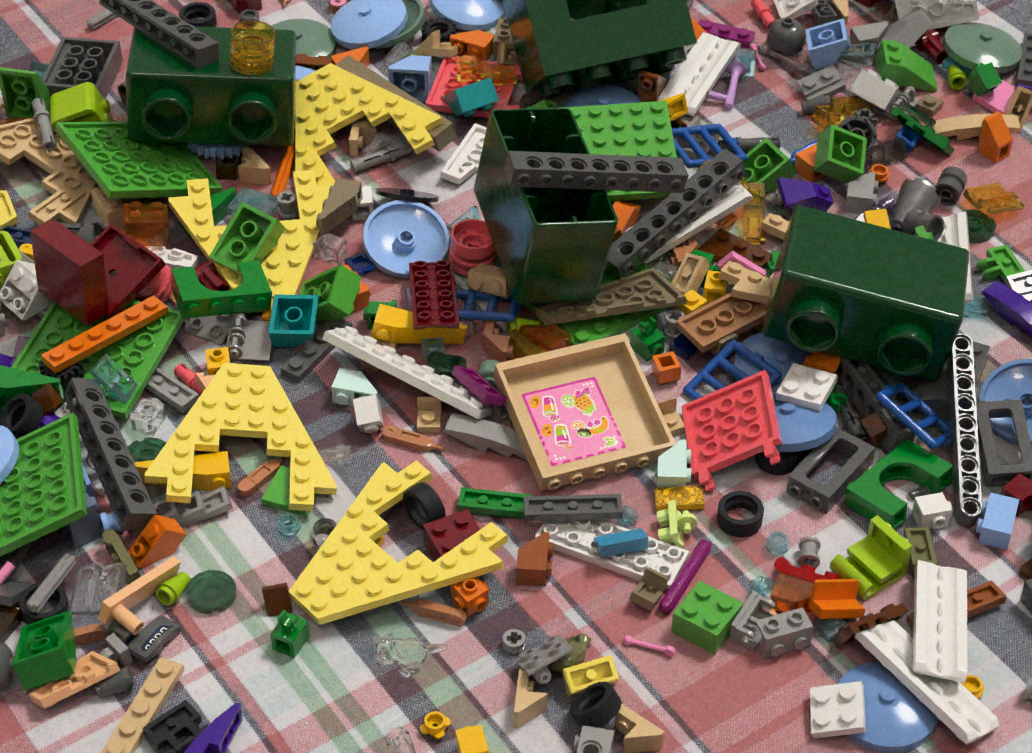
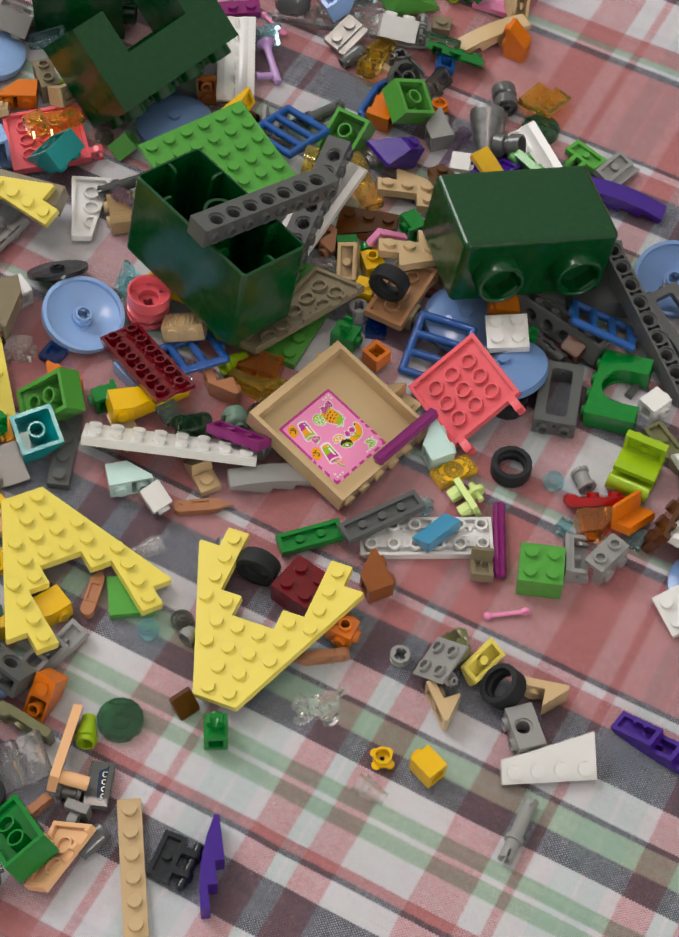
camera: 30 degrees left, 10 degrees up
(642, 443) = (405, 436): none -> magenta axle
(710, 300) = (385, 290): none -> black tyre

